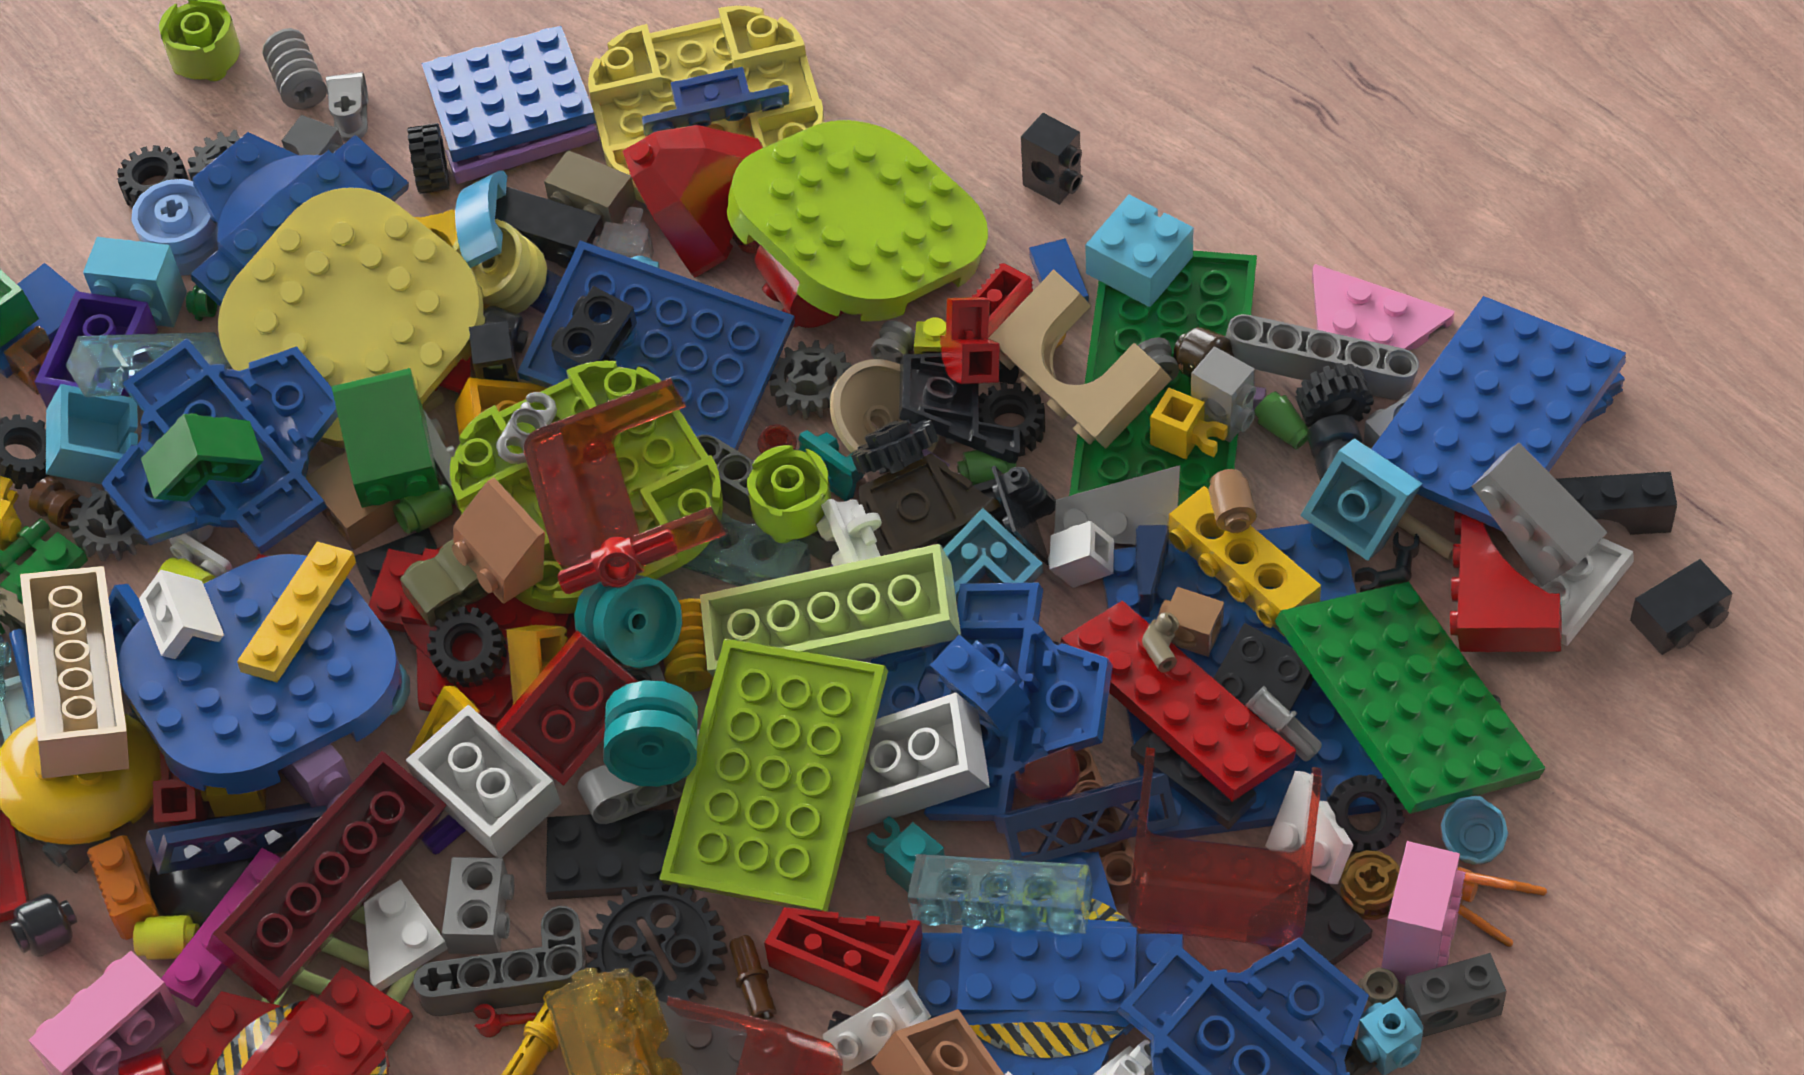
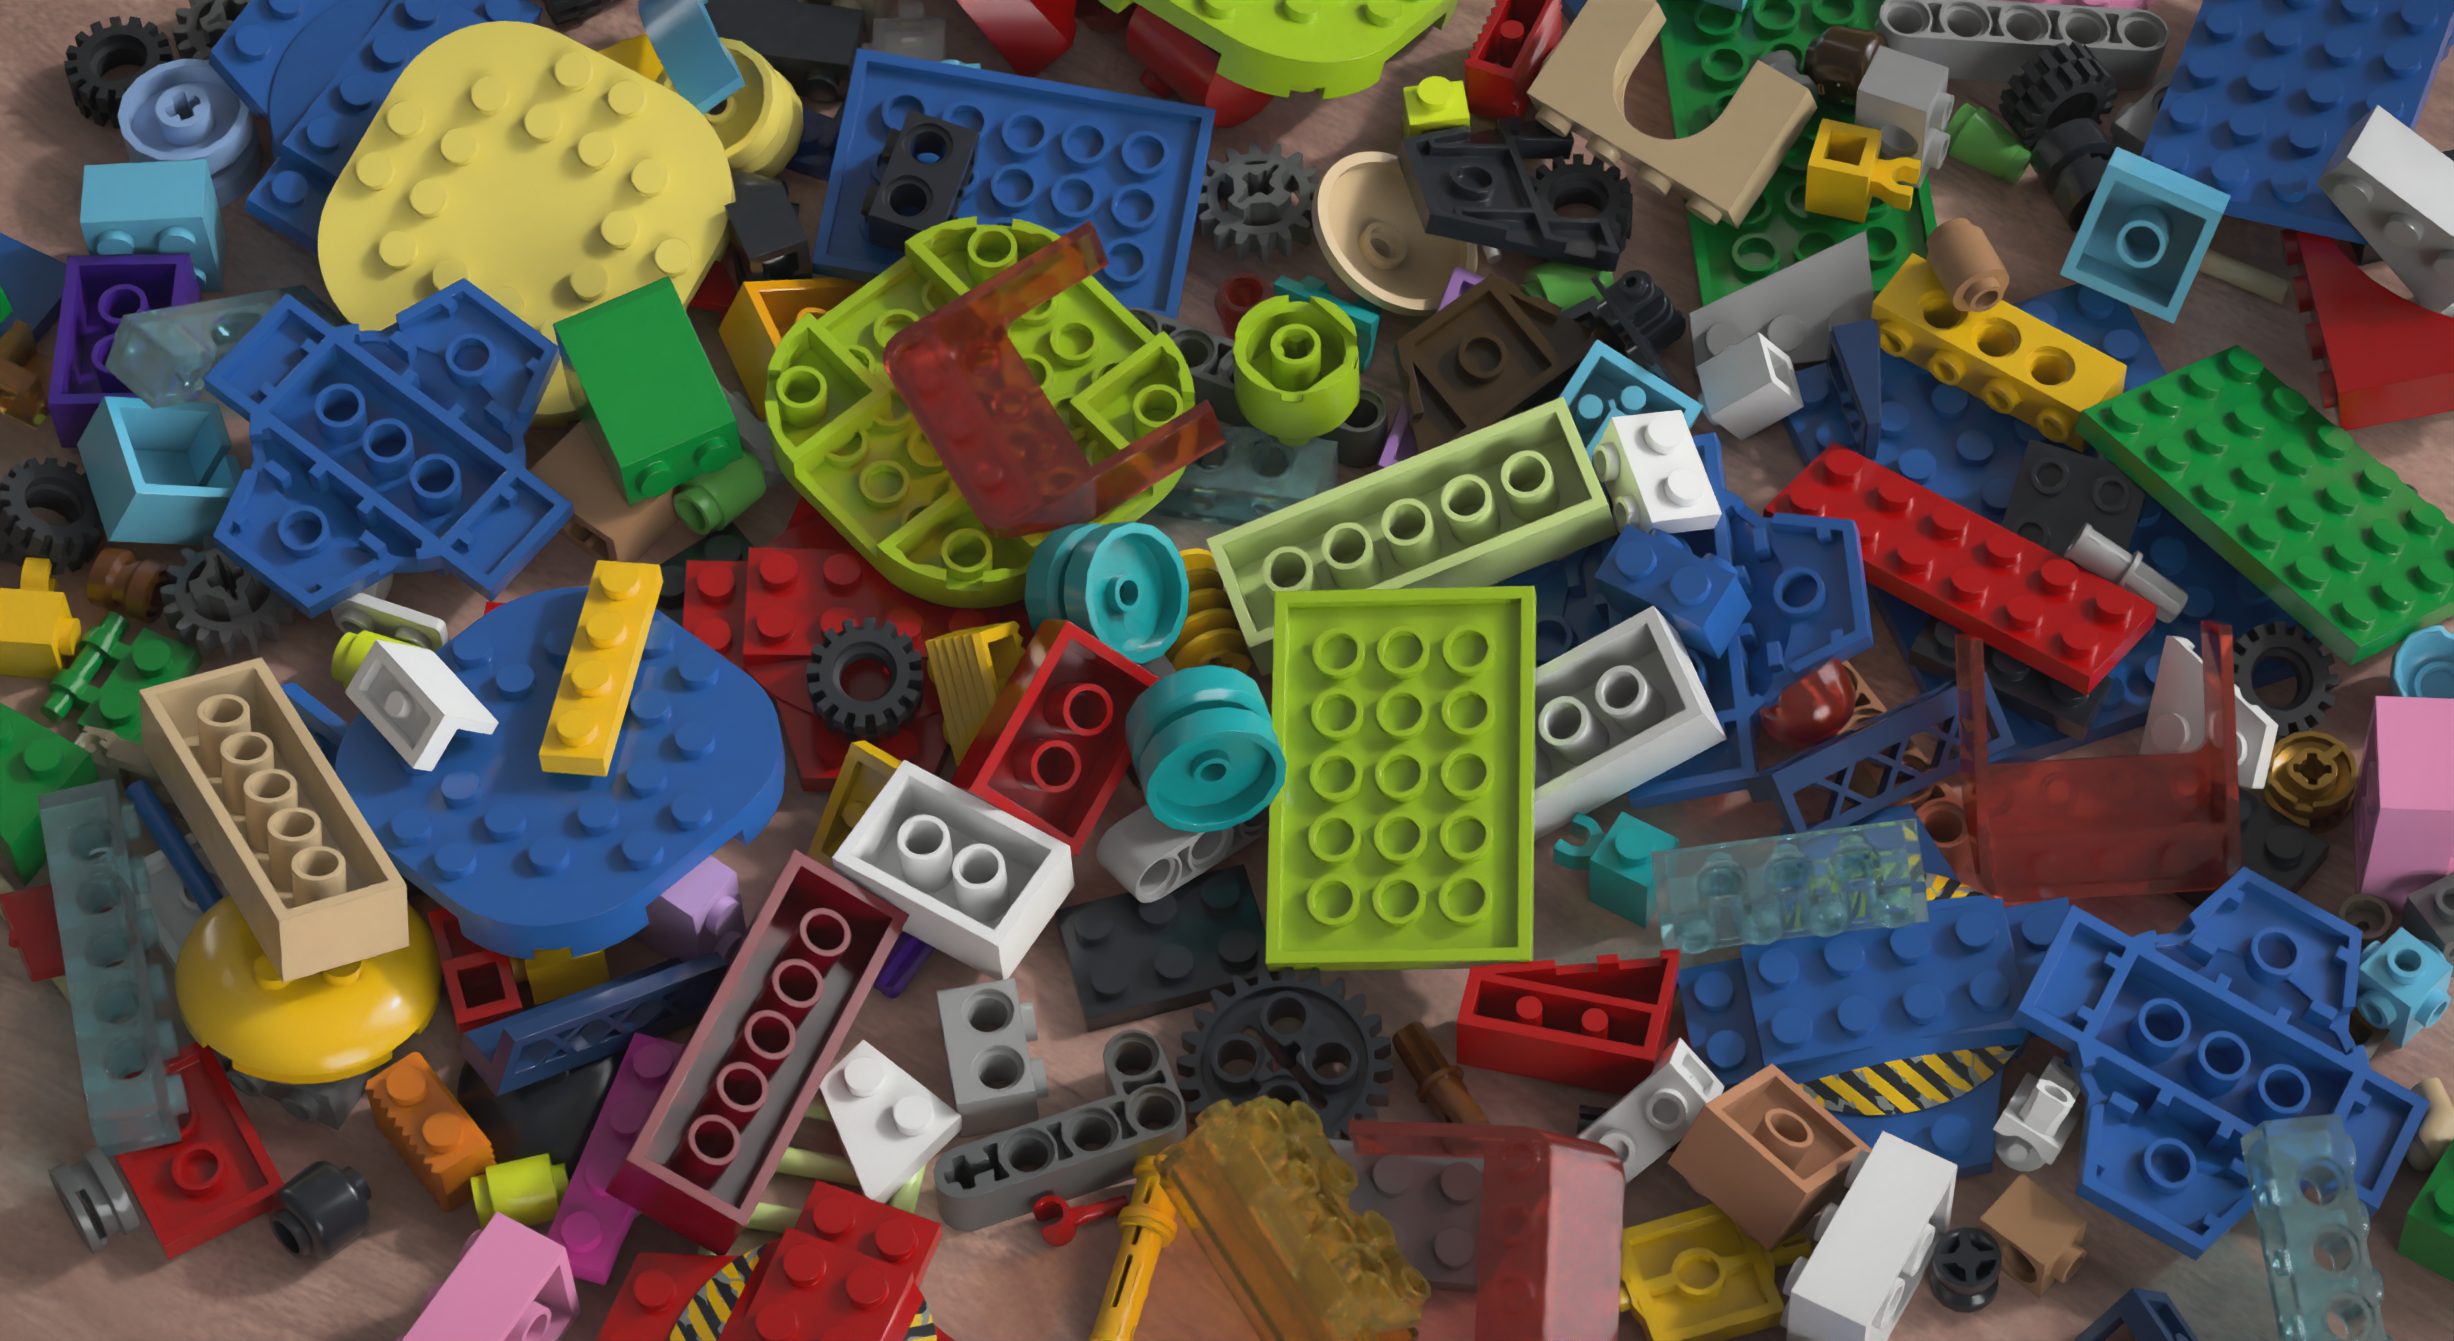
camera: 15 degrees left, 0 degrees up
(200, 304) = (260, 245): green plate -> none
(200, 451) = (366, 460): green brick -> none
(441, 585) = (812, 585): olive brick -> none
(499, 543) = (893, 508): nougat slope -> none
(514, 436) = (858, 352): light grey piece -> none
(636, 553) = (1056, 521): red axle -> none
(850, 529) = (1408, 403): white hips -> none
(894, 342) = (1370, 125): light grey wheel -> none
(894, 446) = (1435, 273): black gear -> none
(966, 347) = (1495, 111): red brick -> none
(991, 604) = (1655, 474): none -> white bracket
(1157, 641) = (1912, 483): dark tan arm -> none
(1198, 619) = (1946, 451): medium nougat brick -> none
(1397, 575) = (2216, 339): black arm -> none

